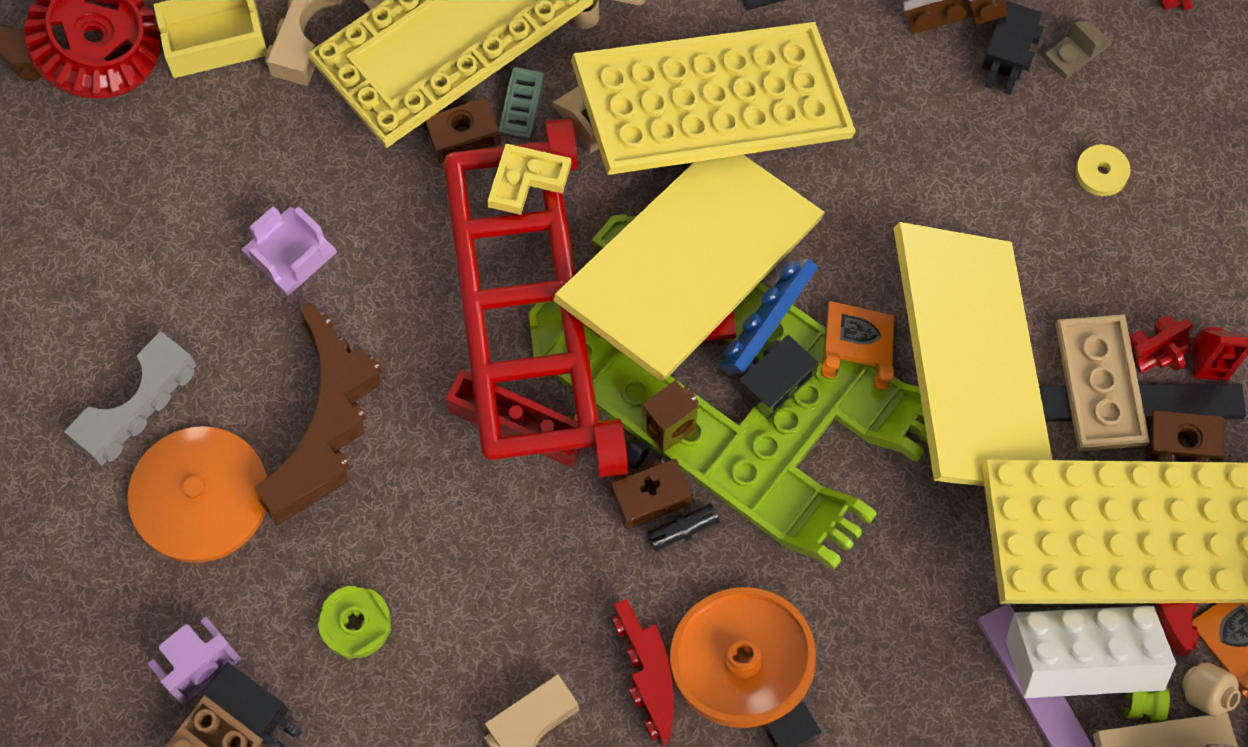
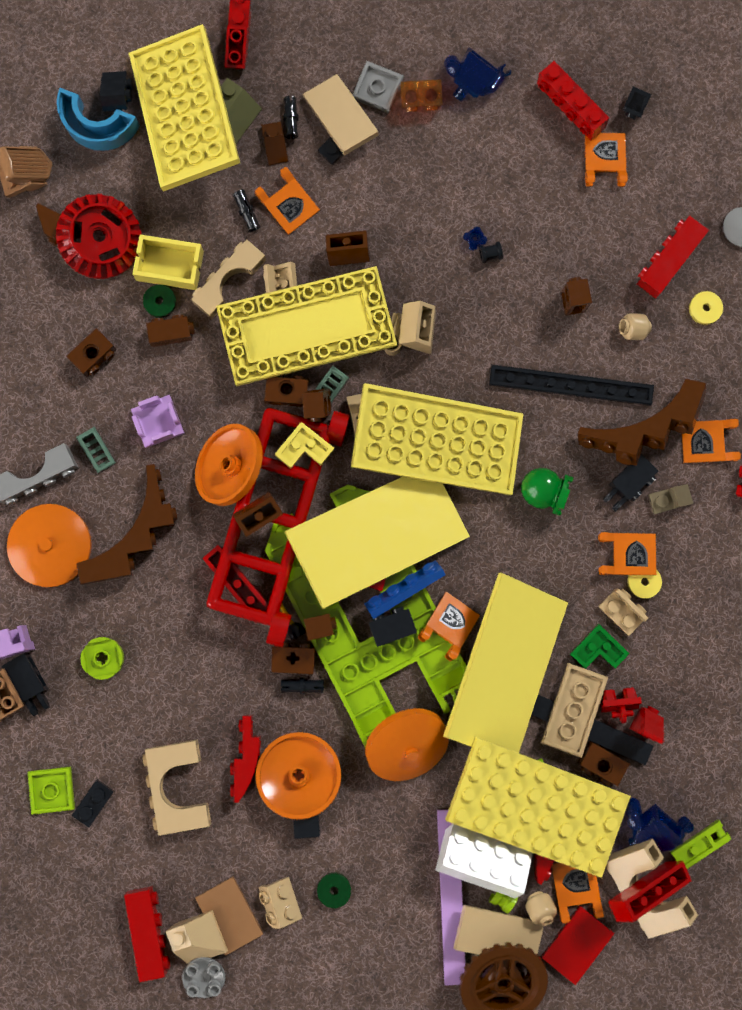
camera: 20 degrees right, 15 degrees up
(148, 179) = (80, 354): none -> reddish brown brick
(190, 310) = (93, 431): none -> sand green slope
(222, 103) = (159, 310): none -> dark green piece
(253, 120) = (170, 331): none -> reddish brown brick
(425, 252) = (228, 464): none -> orange dish
(503, 286) = (257, 514): none -> reddish brown brick
(515, 118) = (316, 404): none -> reddish brown brick
(884, 530) = (406, 744): none -> orange dish
(898, 101) = (545, 489): none -> green tile
(1064, 139) = (632, 553): none -> orange flag
(1087, 277) = (599, 643): none -> green plate
(1096, 219) = (623, 611): none -> tan bracket

